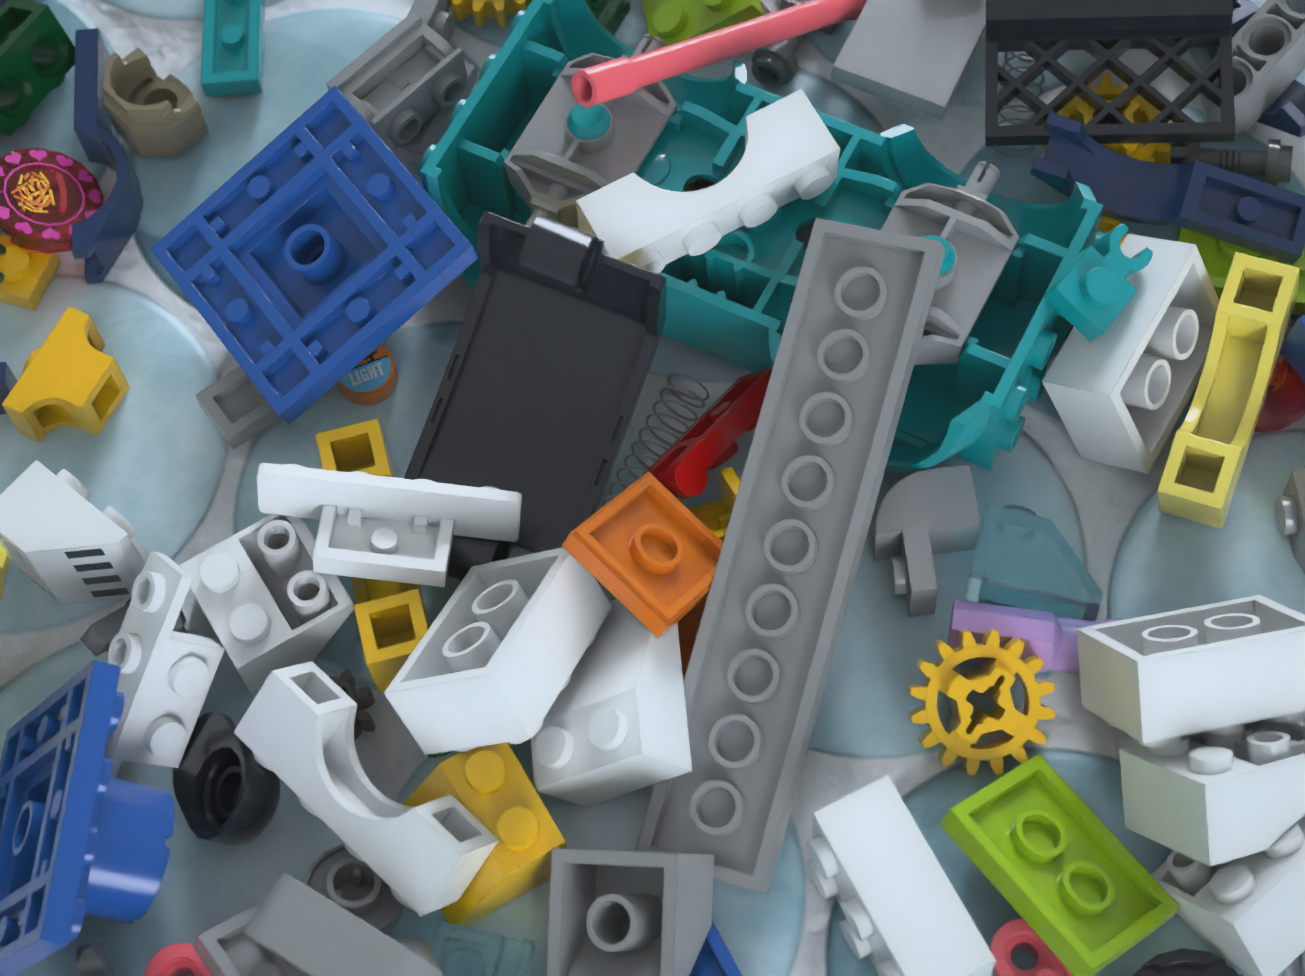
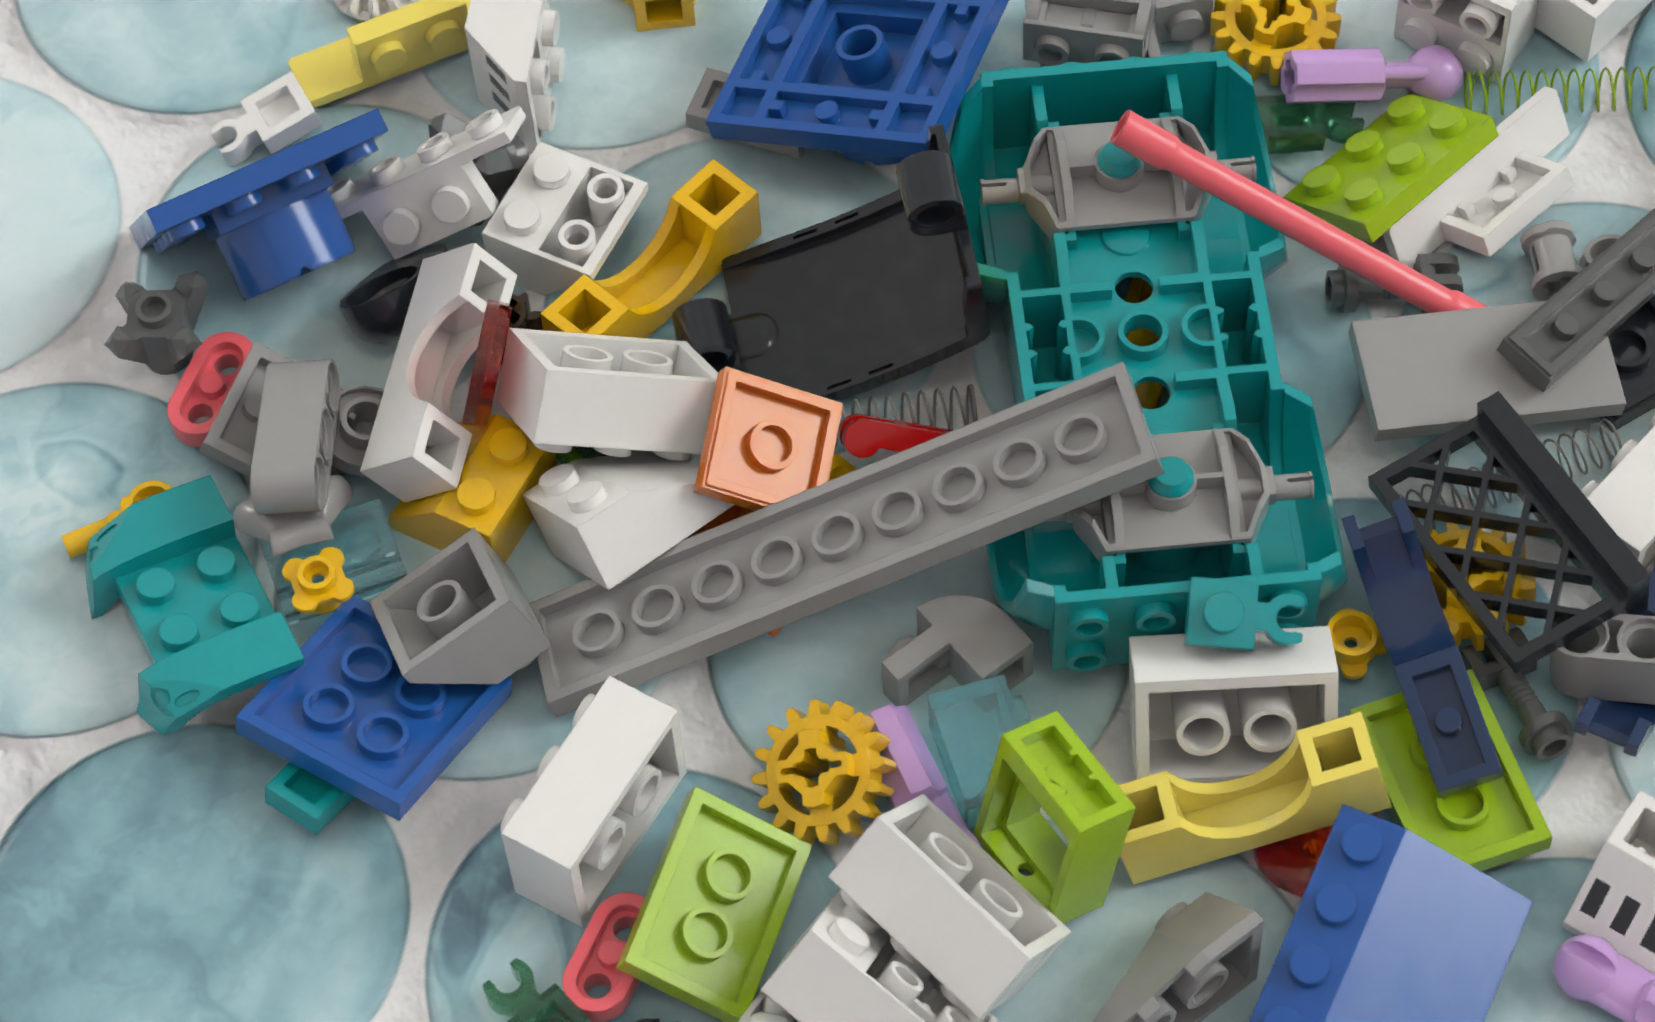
camera: 55 degrees right, 5 degrees down
(371, 379) = (821, 175): tile -> none
(386, 523) = (664, 254): white bracket -> none
(400, 736) = (487, 364): none -> clear red tile
(784, 159) = (1177, 312): white arch -> none
(1163, 503) = (1054, 770): none -> lime window

